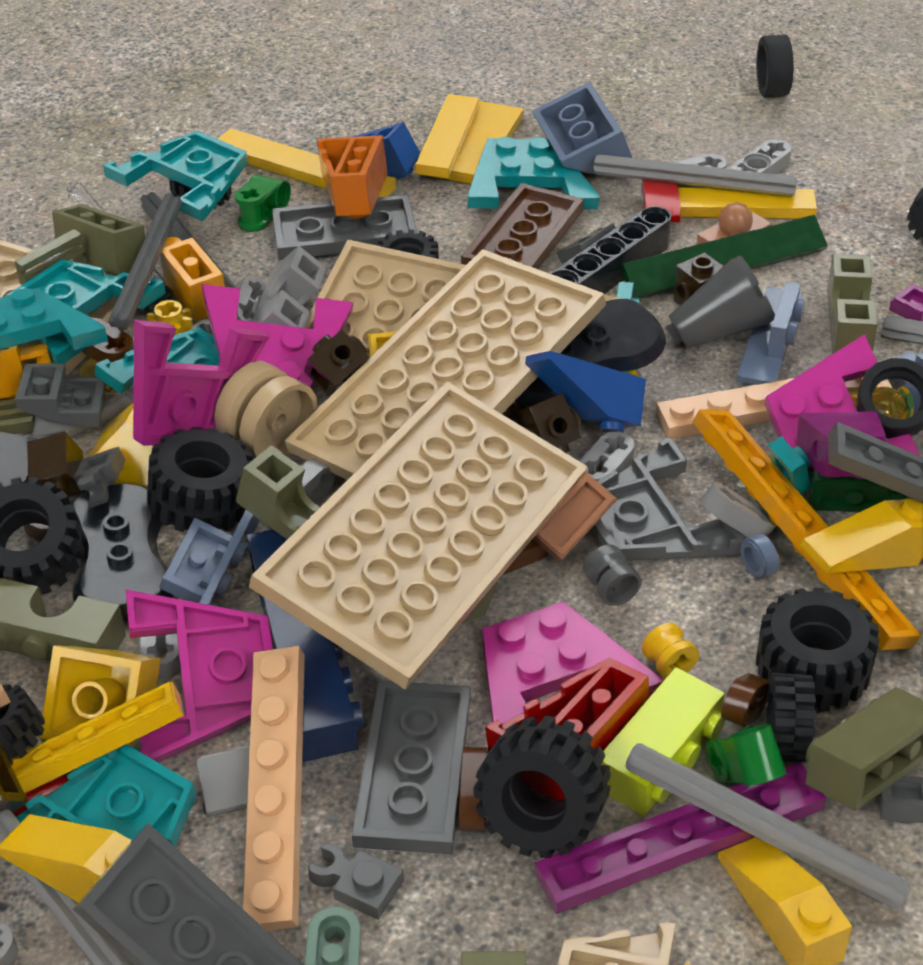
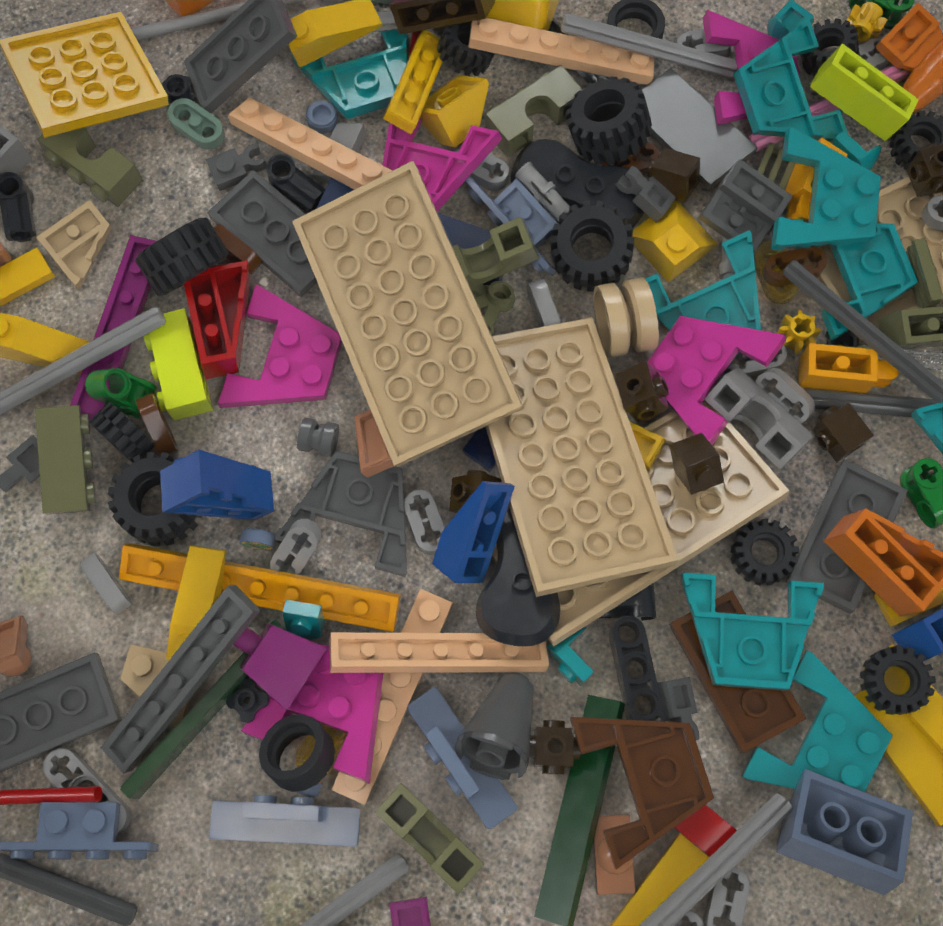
camera: 125 degrees right, 30 degrees up
(159, 553) = (542, 190): none -> light grey pin
(178, 393) = (649, 250): dark pink wing -> none
(208, 835) = (322, 116): none -> sand blue tile
(250, 256) = (841, 431): none -> dark brown brick
(334, 786) = (296, 184): none -> black piece
(380, 285) = (696, 463): none -> dark brown brick
(446, 142) = (919, 680): none -> black tyre
(497, 214) = (751, 648): none -> teal wing
(656, 204) = (661, 773): none -> reddish brown wing
(669, 649) = (232, 421): yellow wheel -> none
(733, 377) = (431, 653): none -> light nougat plate
(762, 567) = (216, 487): none -> blue wedge

